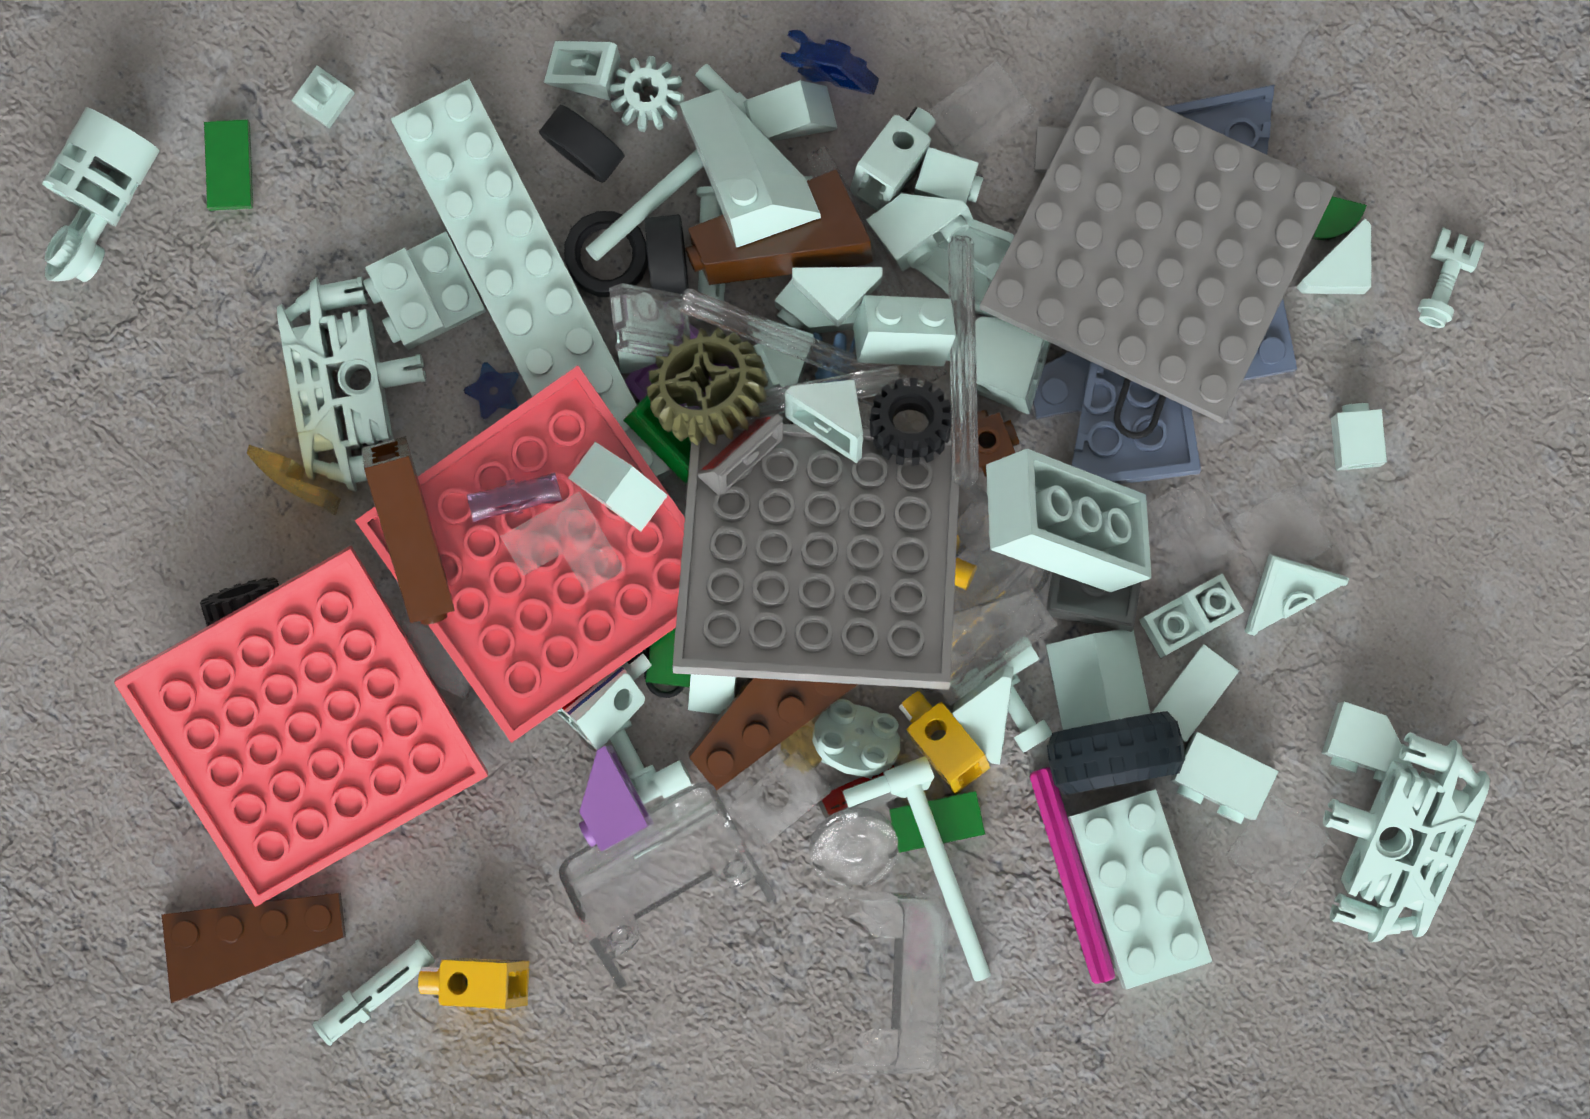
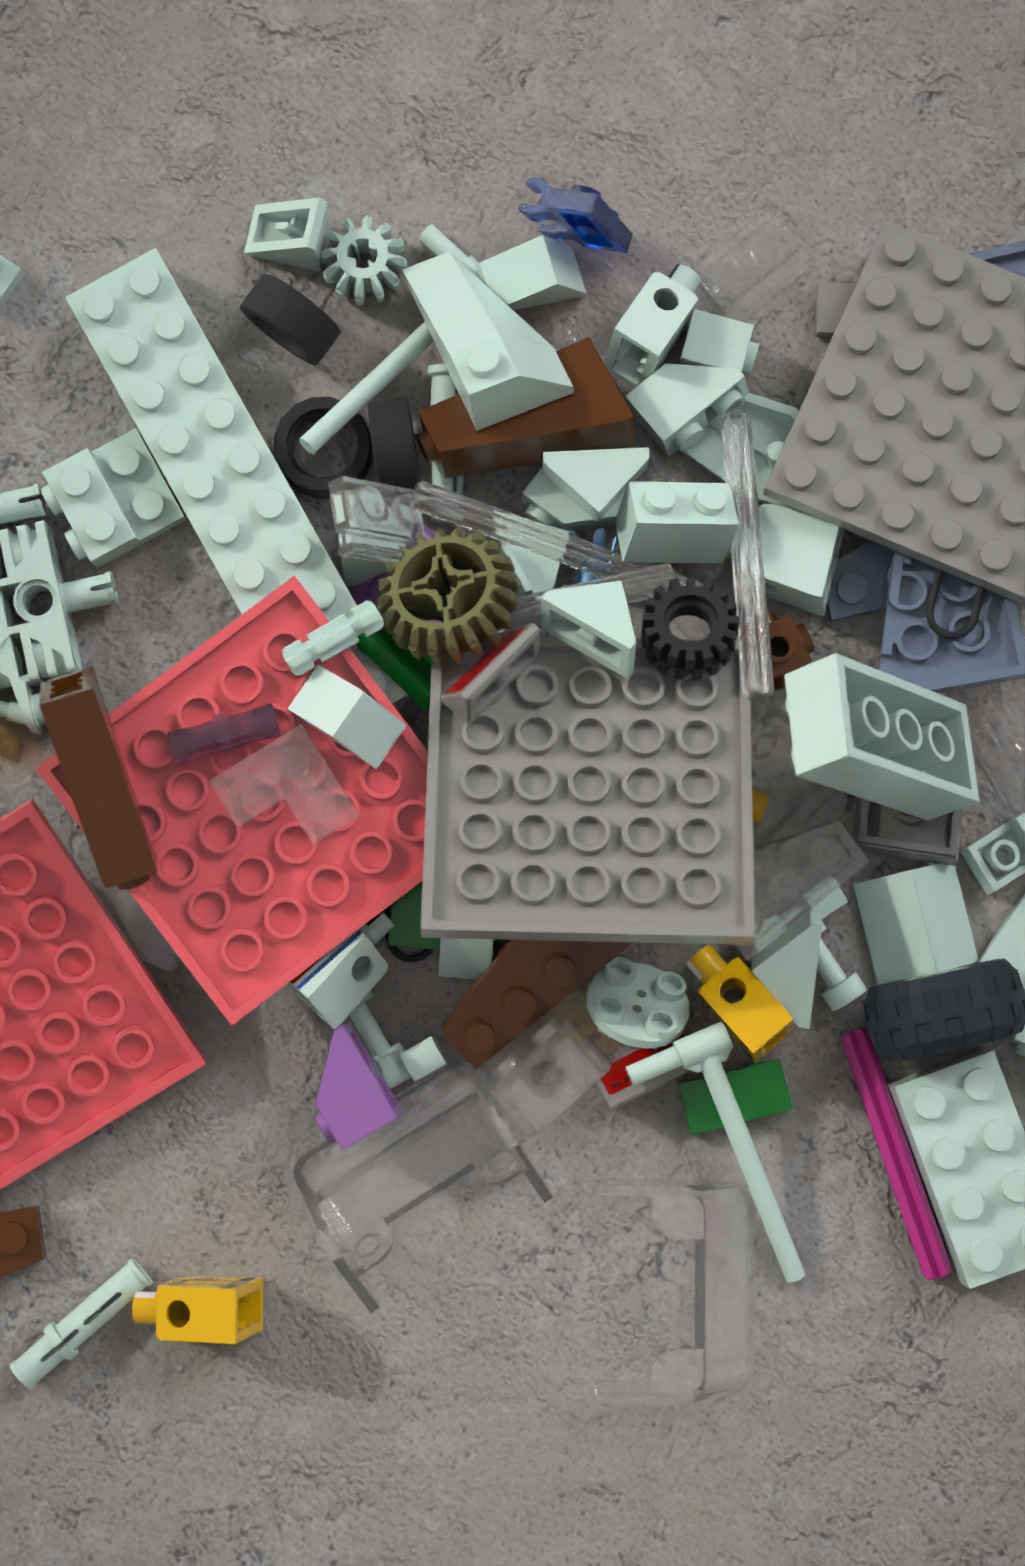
camera: 10 degrees left, 0 degrees up
(481, 390) = (194, 597): clear blue plate -> none
(608, 419) = (333, 638): none -> light aqua axle
(853, 848) = (640, 1132): clear tile -> none

